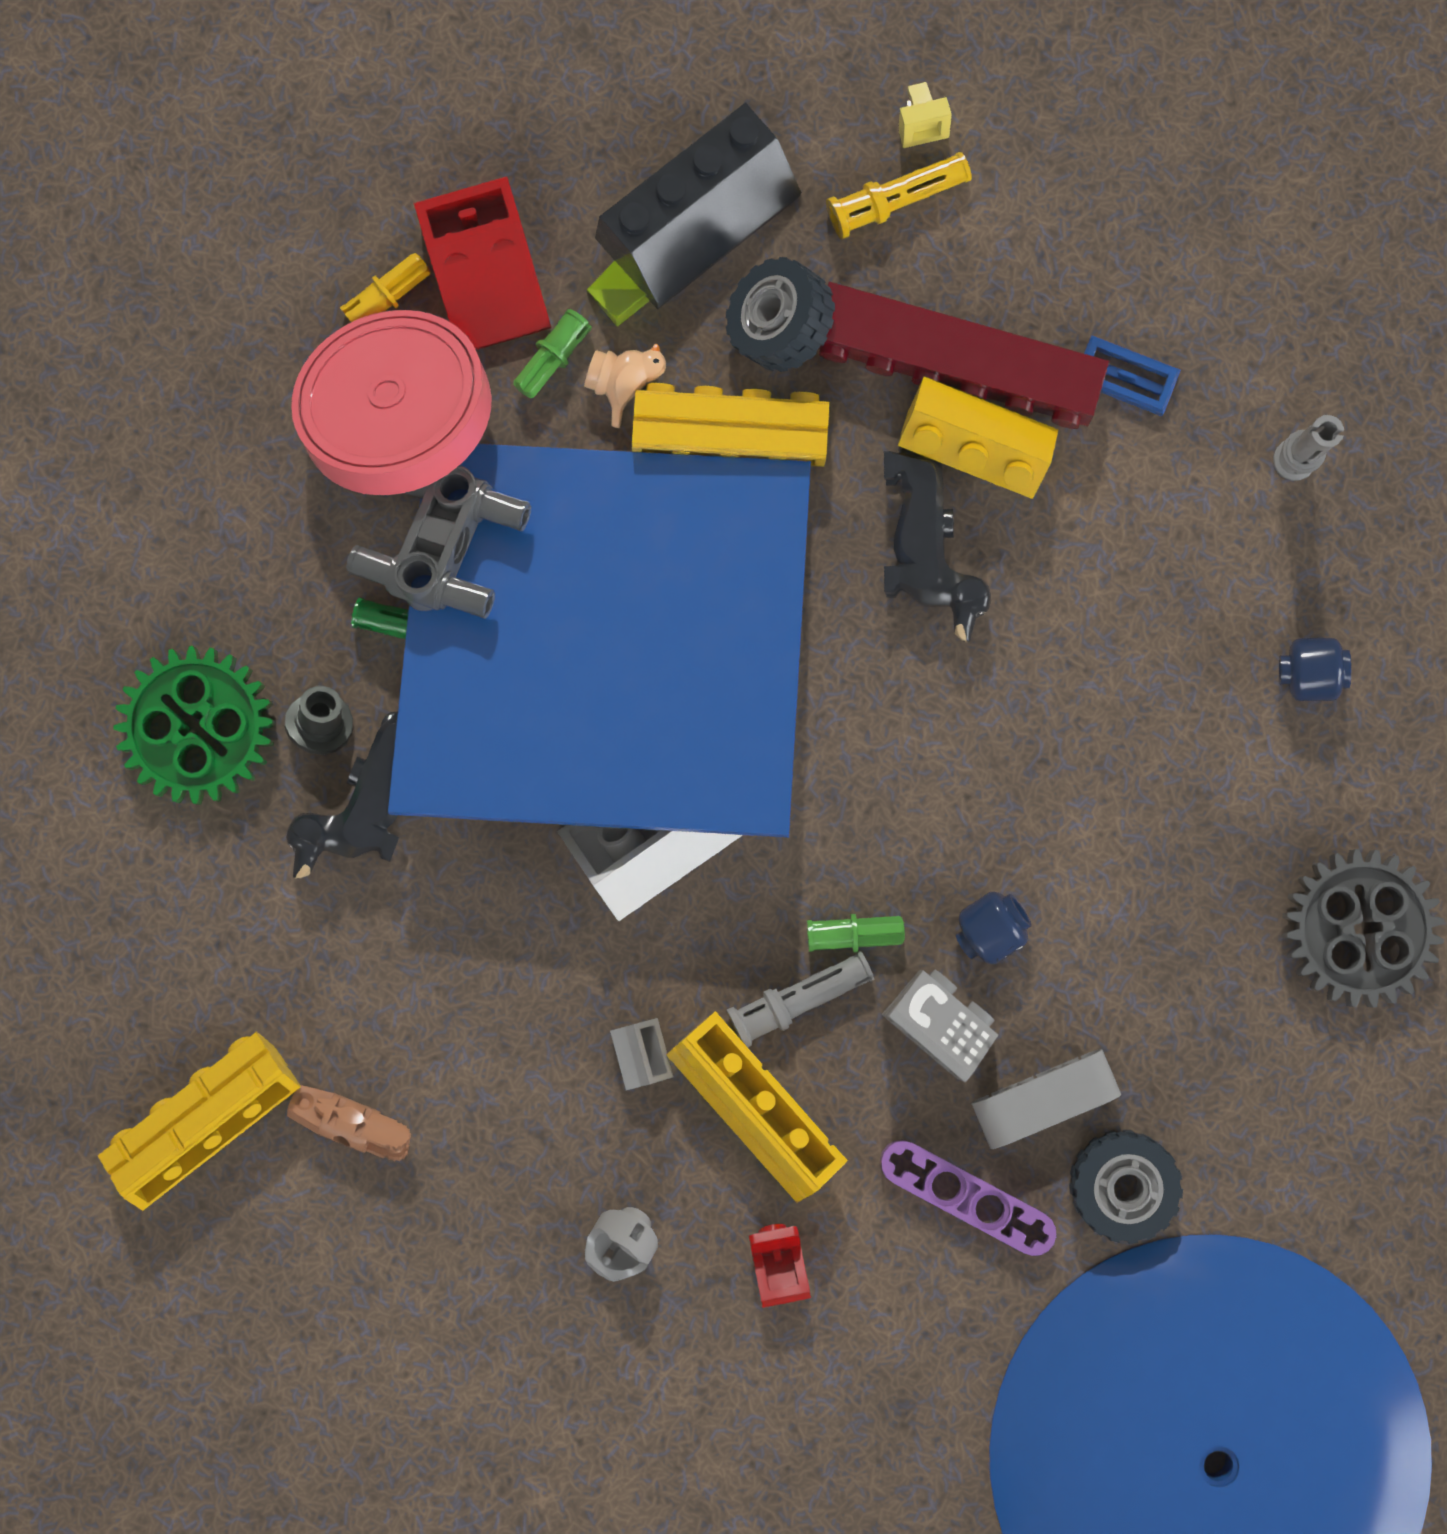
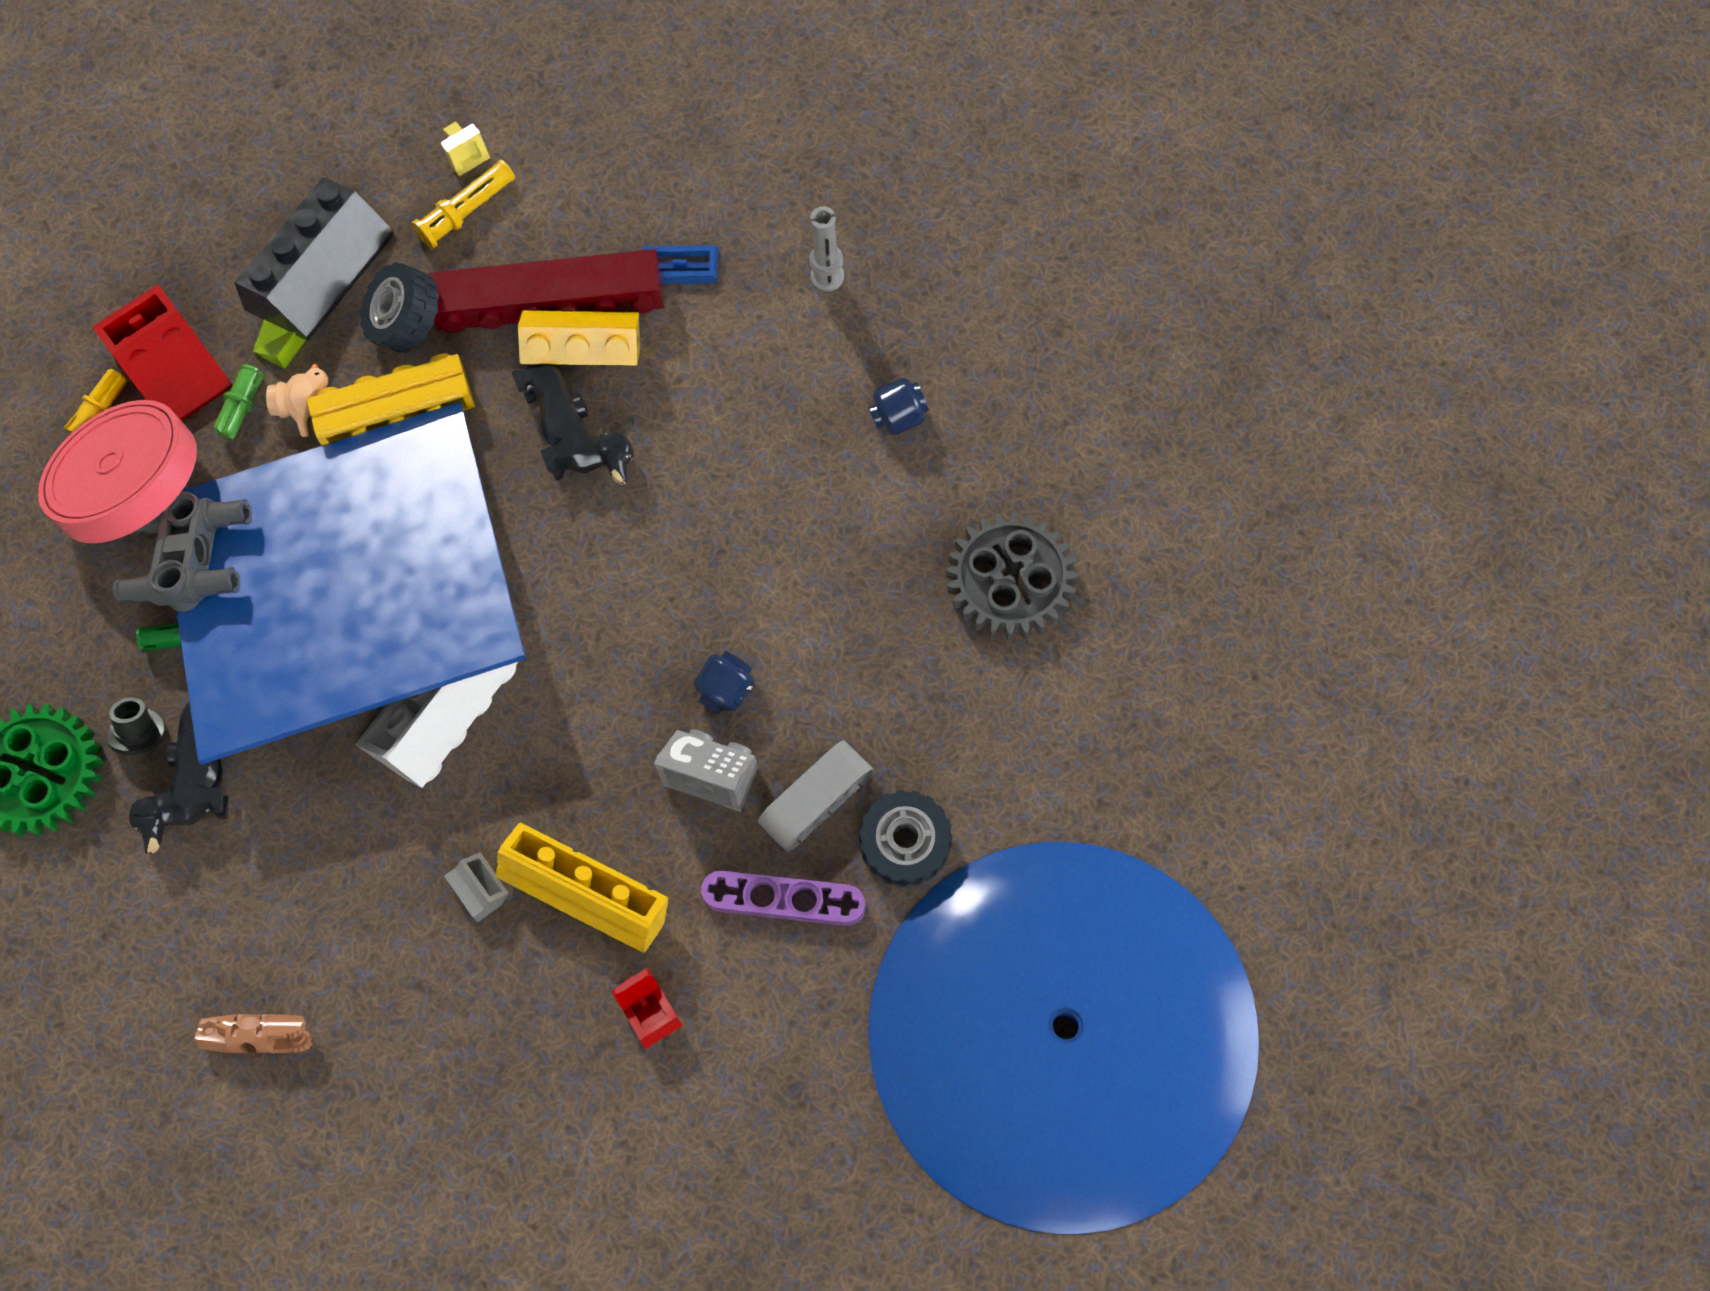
camera: 10 degrees left, 15 degrees down
(198, 1120) = (121, 1079): yellow brick -> none
(629, 1236) = (512, 1035): light grey piece -> none
(778, 1008) = (577, 808): light grey pin -> none
(855, 933) = (617, 729): bright green axle -> none

